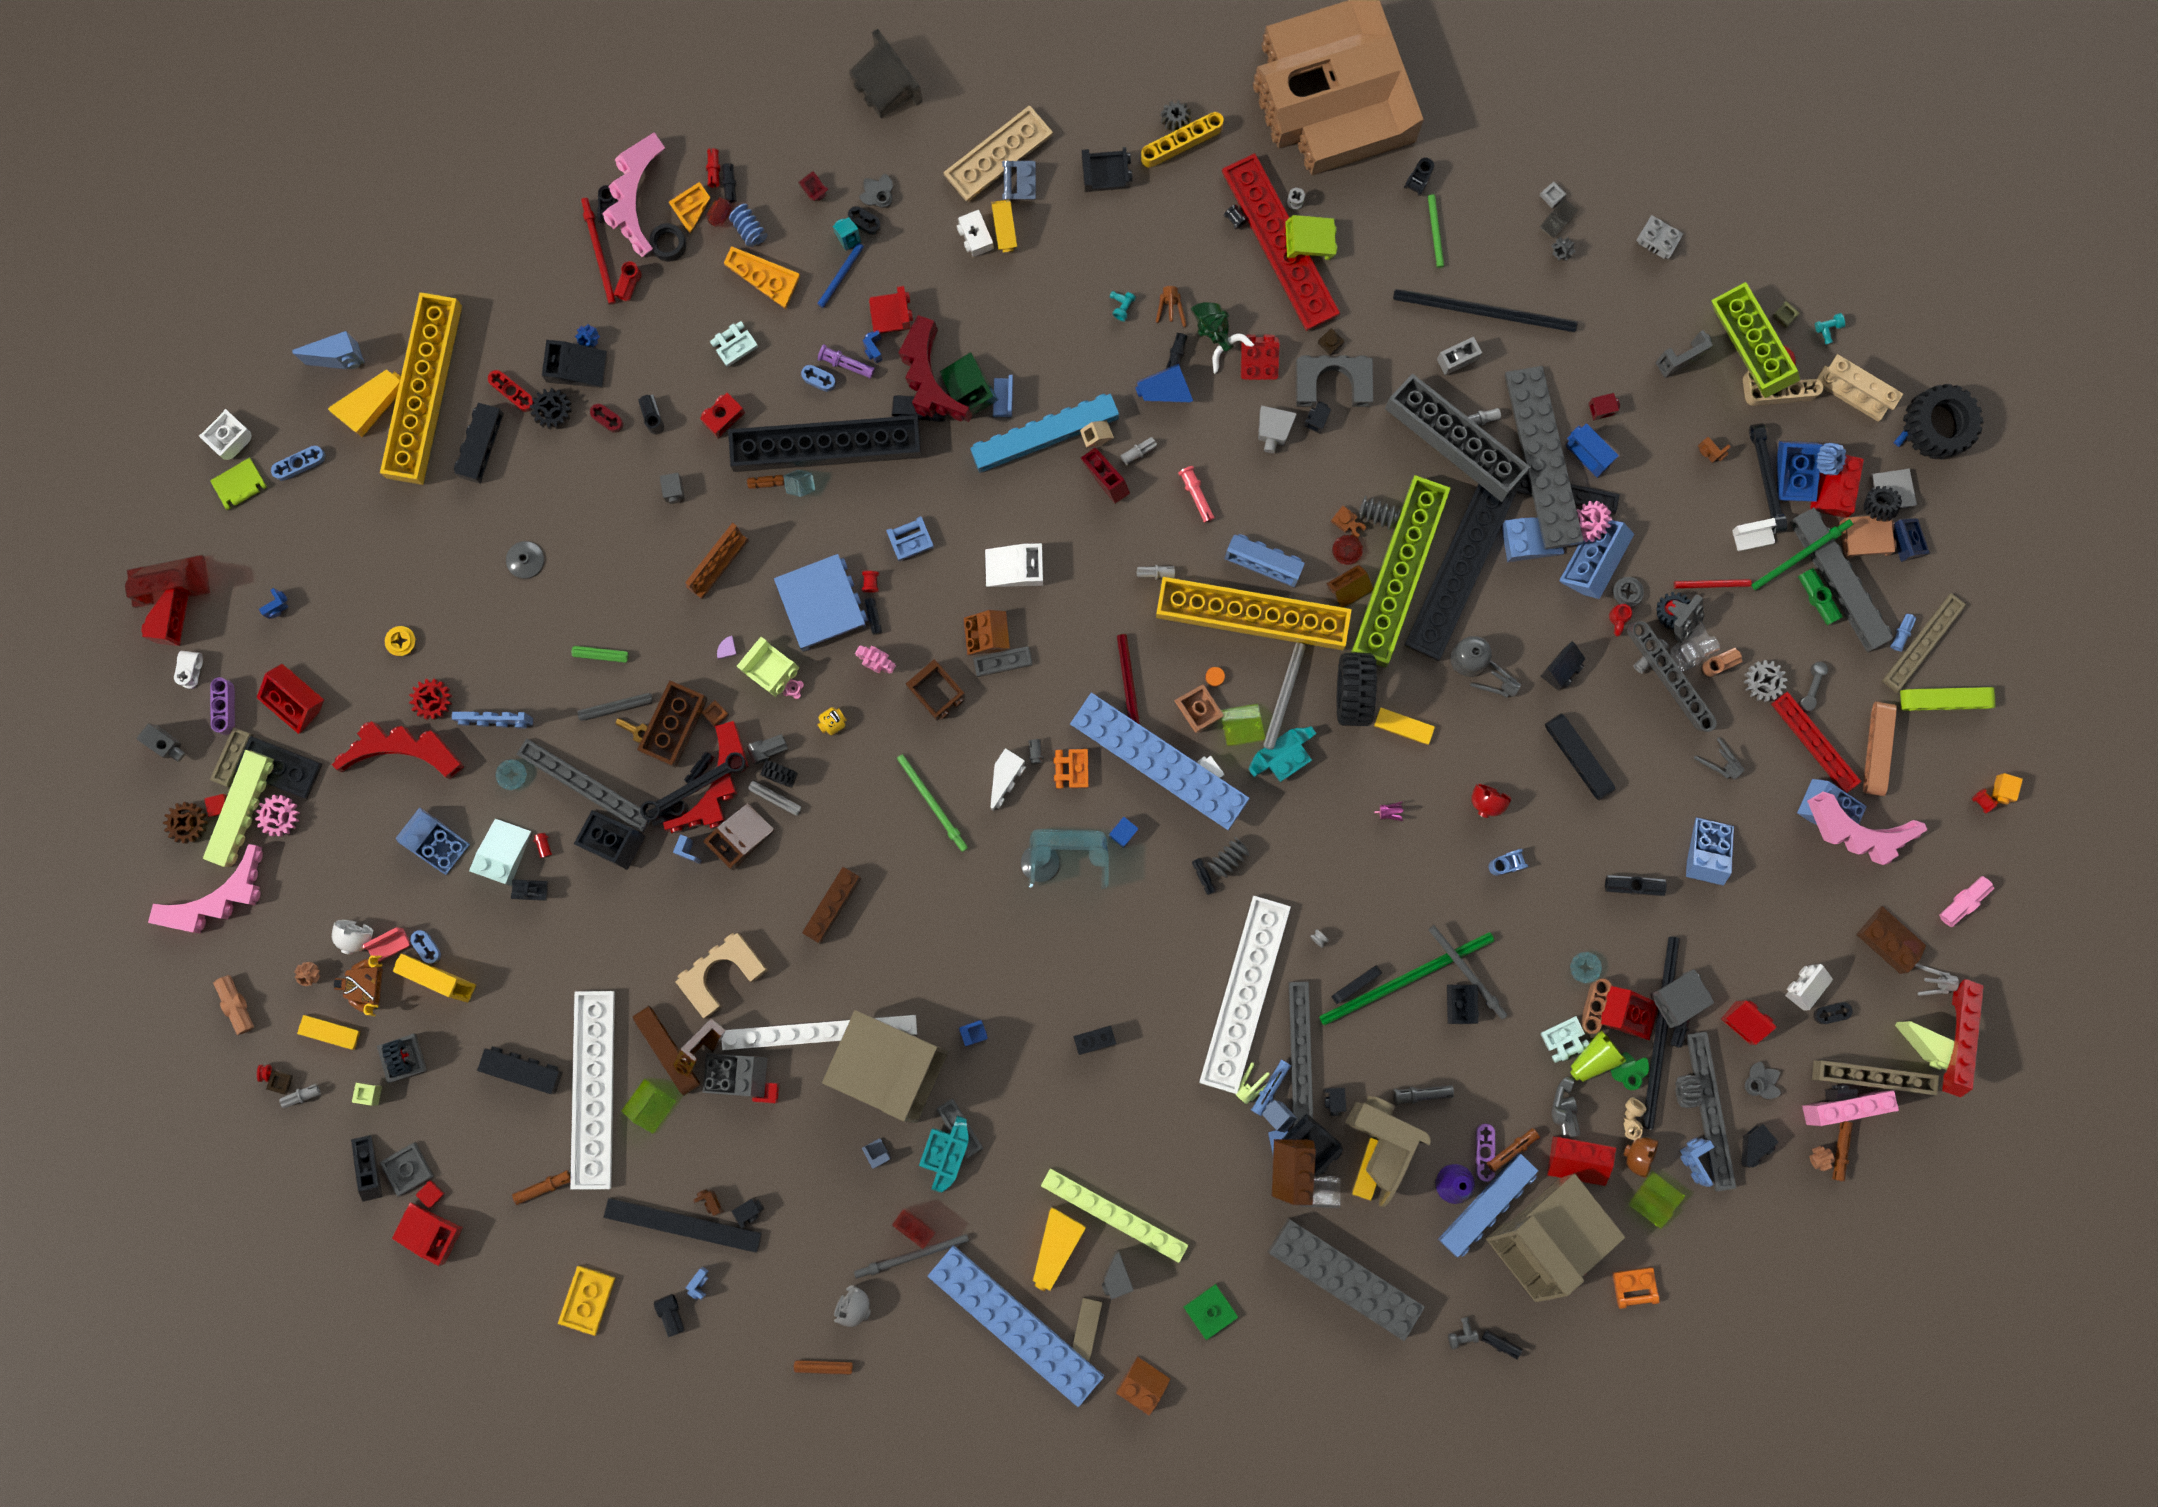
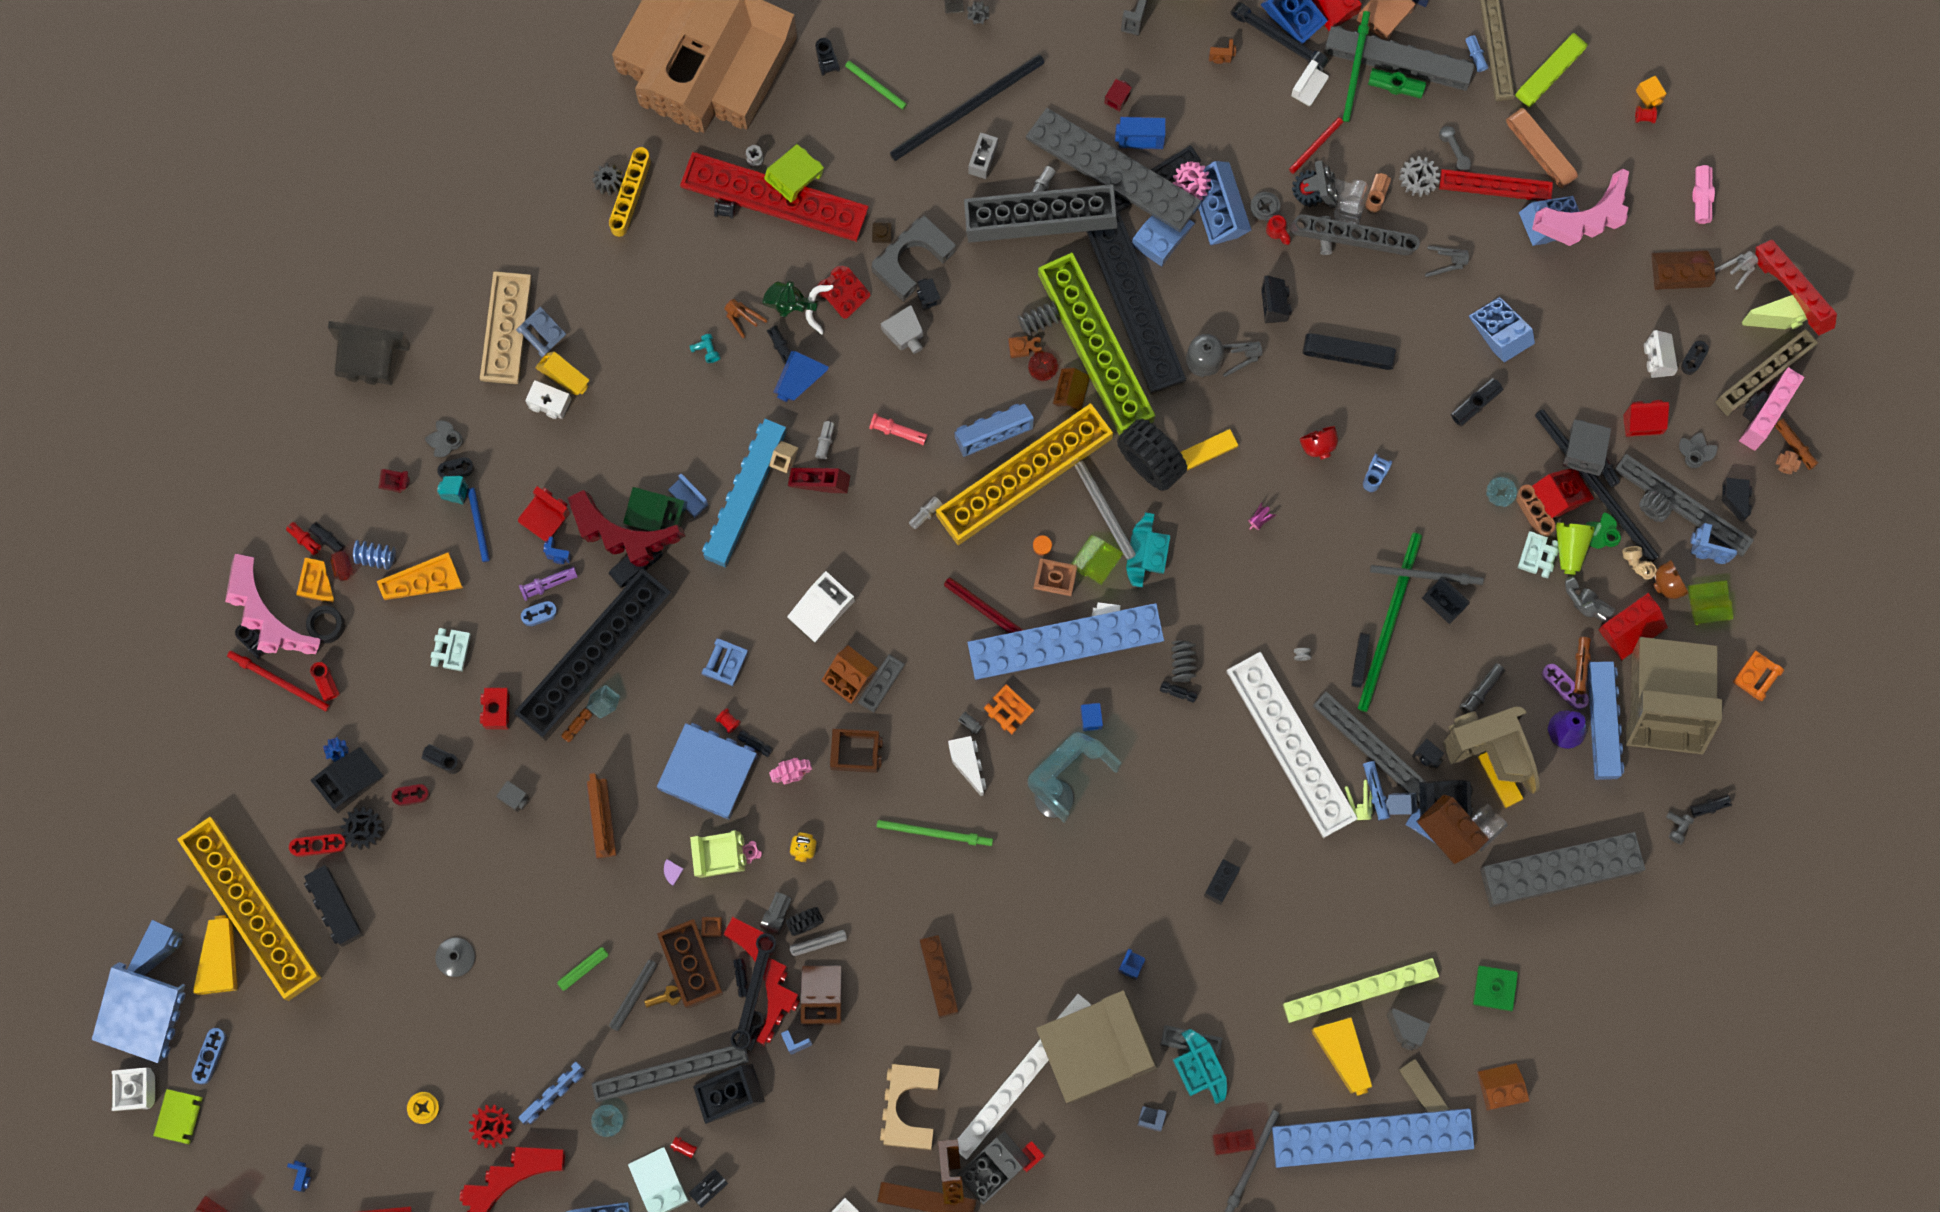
camera: 45 degrees left, 5 degrees down
(276, 387) = (138, 1014): none -> panel
(1106, 170) = (597, 265): black panel -> none

